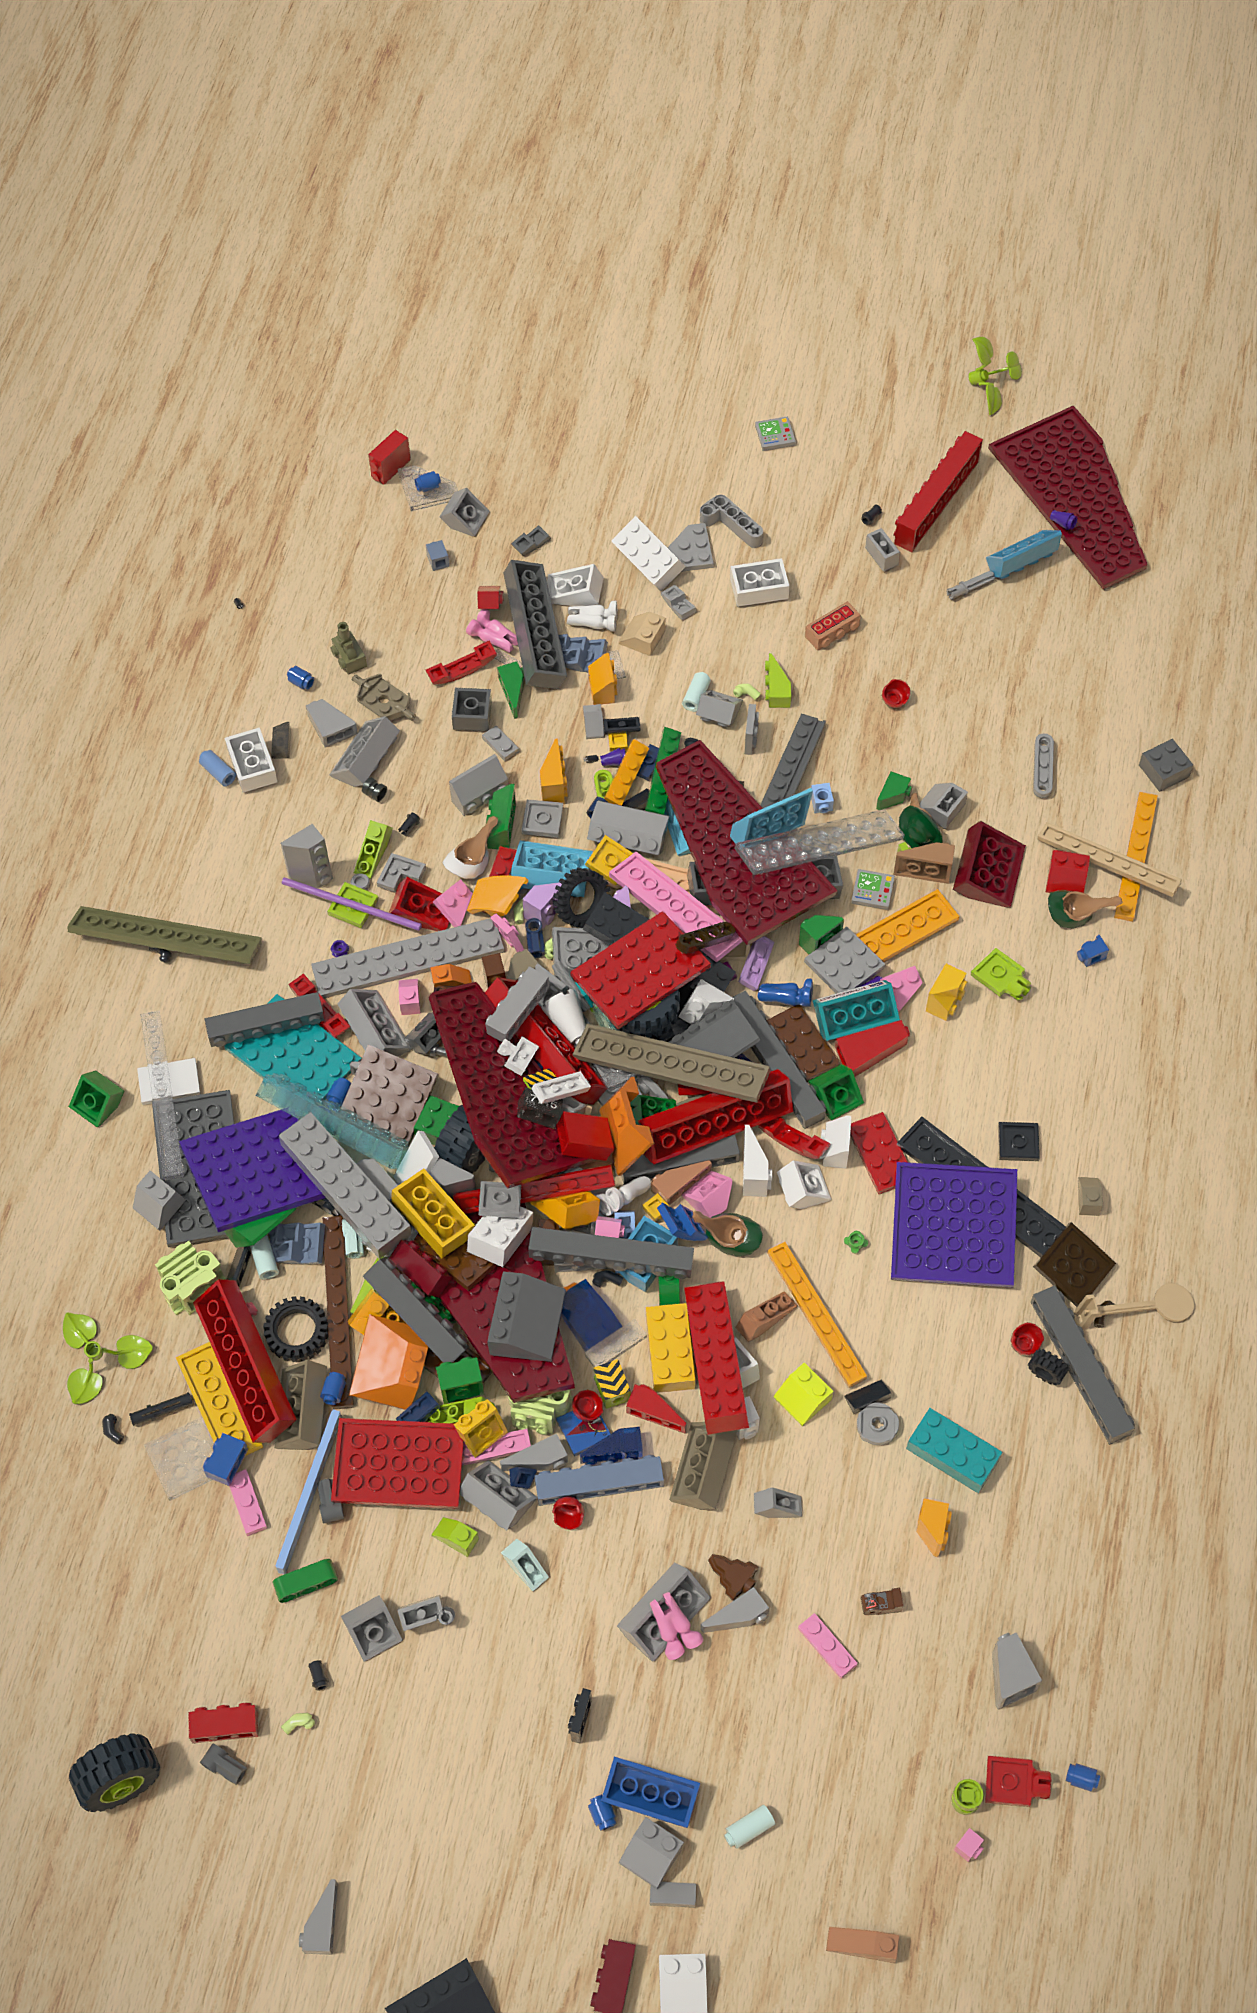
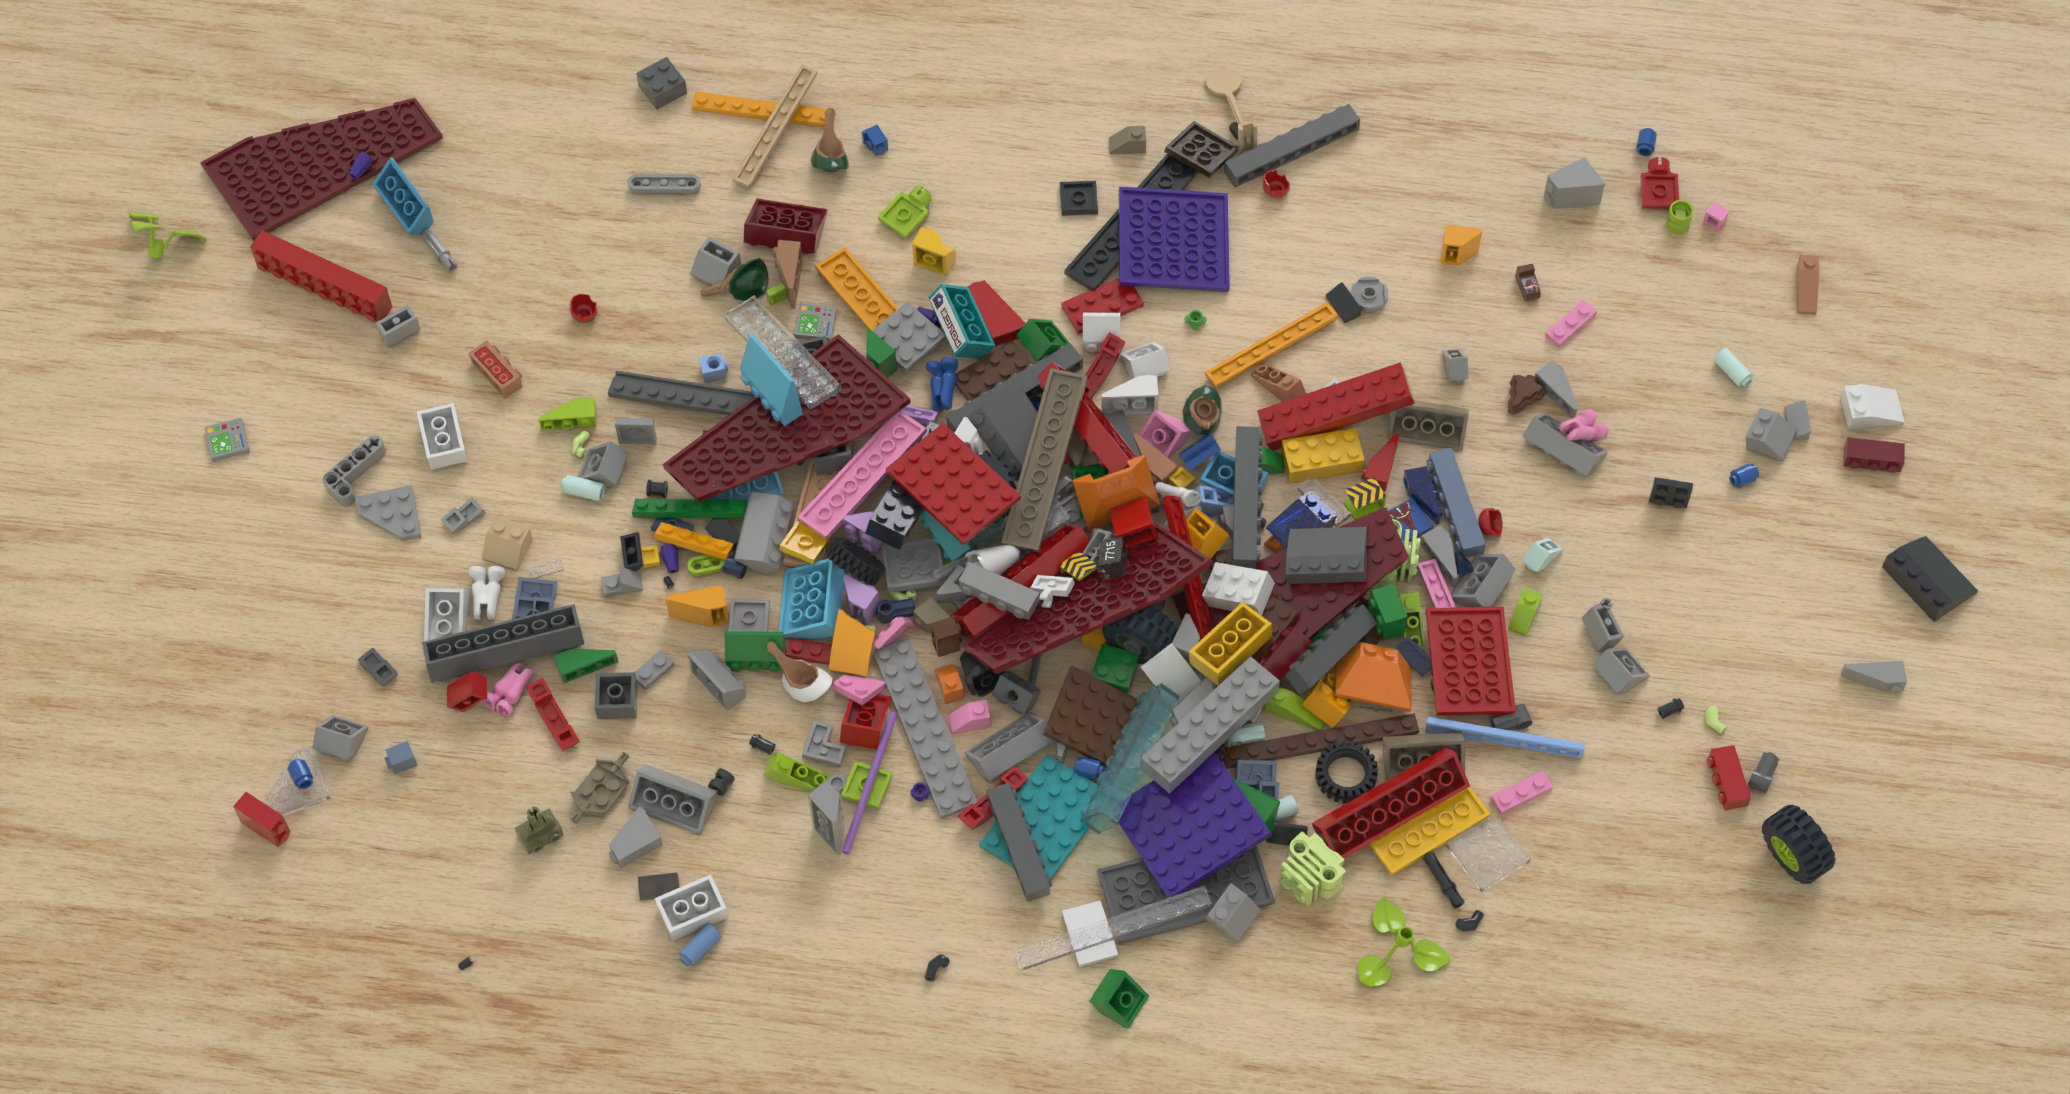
camera: 95 degrees left, 0 degrees up
(165, 934) = (919, 962): olive plate -> none
(225, 1459) = (1490, 806): blue brick -> none
(300, 677) = (574, 877): blue brick -> none
(305, 1580) = (1588, 729): green beam -> none
(333, 1388) = (1406, 724): blue brick -> none
(481, 1427) = (1434, 593): yellow plate -> none
(498, 1200) = (1210, 588): light grey tile -> none
(505, 658) = (543, 672): clear window -> none
(560, 1087) = (1092, 538): white plate -> none
(587, 1405) = (1396, 509): red hair -> none
(602, 680) = (575, 572): light orange slope -> none
(609, 1227) = (1220, 504): bright pink brick -> none
(648, 553) = (405, 542): white brick -> none
(651, 1792) = (1723, 437): blue slope -> none
(685, 947) = (900, 421): dark brown beam -> none
(803, 1394) = (1350, 349): neon yellow slope -> none
(868, 517) = (348, 344): black pin -> none
(894, 791) = (700, 307): green slope -> none
(904, 985) = (920, 290): bright pink wing -> none
(954, 1450) = (1386, 235): teal brick -> none
(1048, 1367) = (1301, 166): black tyre -> none
(1067, 871) = (790, 161): red slope -> none

